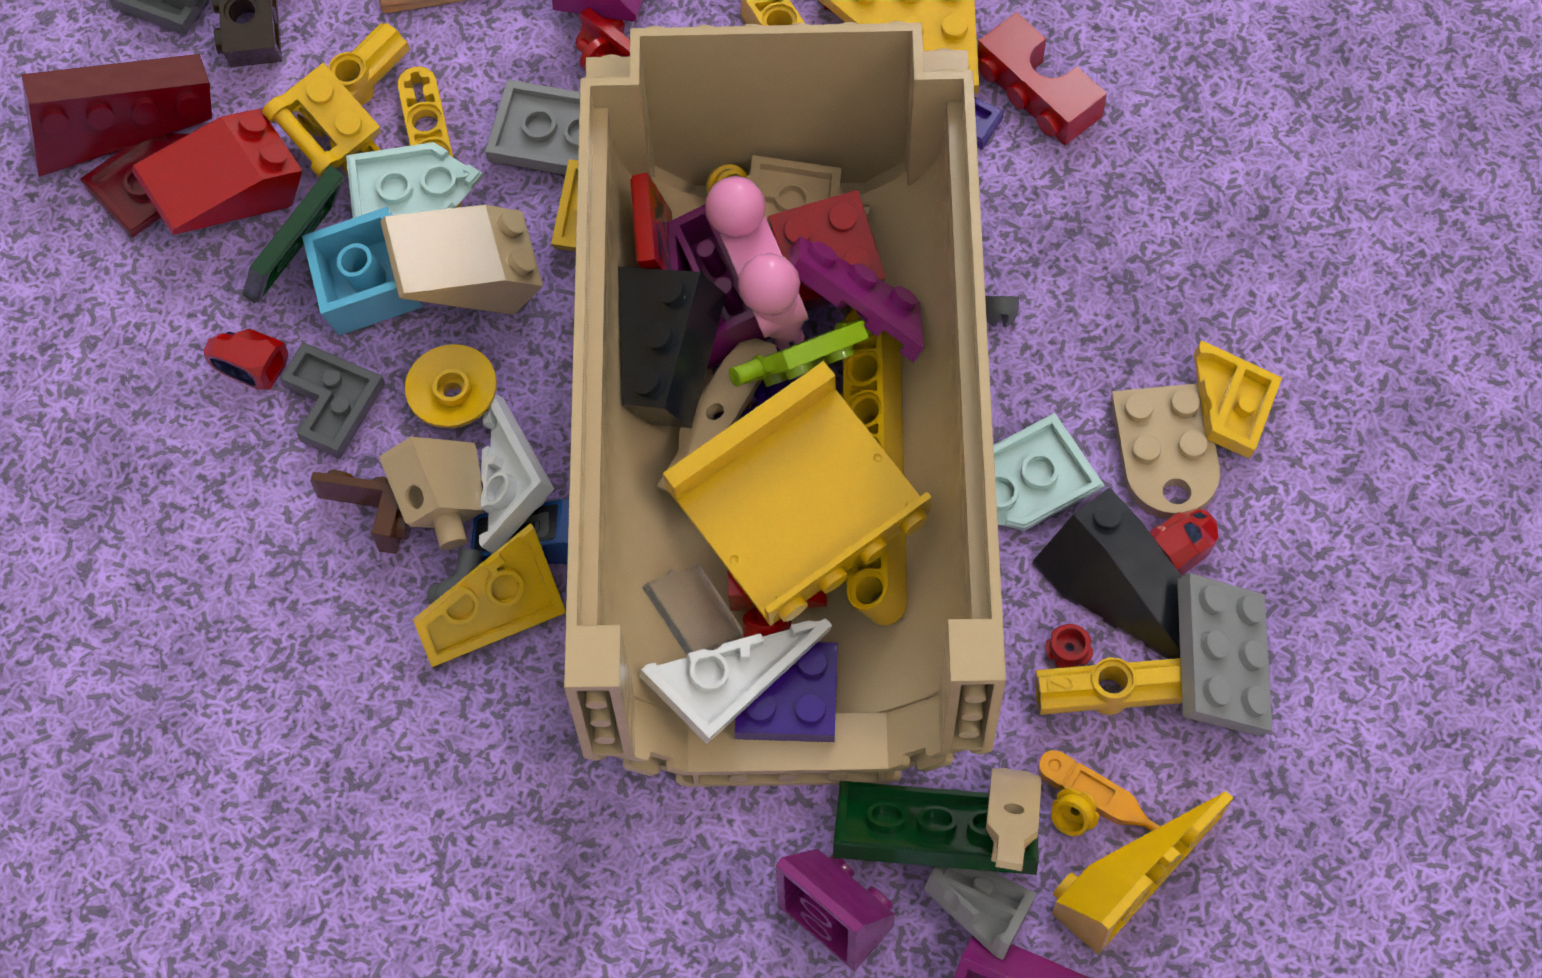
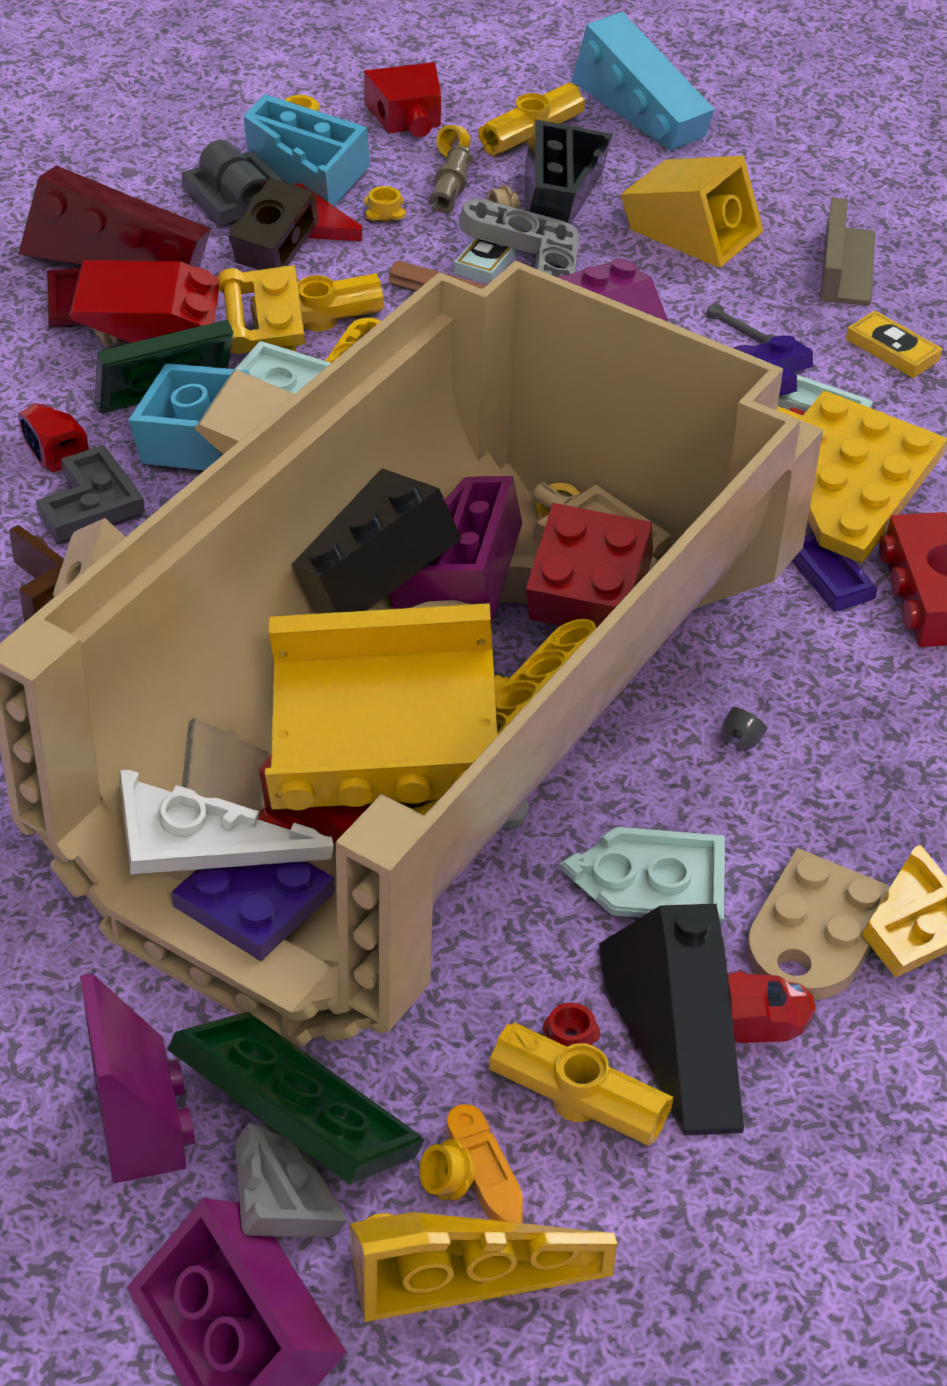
camera: 30 degrees right, 20 degrees down
(650, 223) = (441, 451): red tile -> none
(766, 278) = (503, 518): bright pink piece -> none
(802, 356) = (514, 611): lime plate -> none
(856, 285) = (570, 573): magenta wing -> none
(1012, 815) = (360, 1110): tan piece -> none
(1224, 655) = (720, 1121): light grey plate -> none

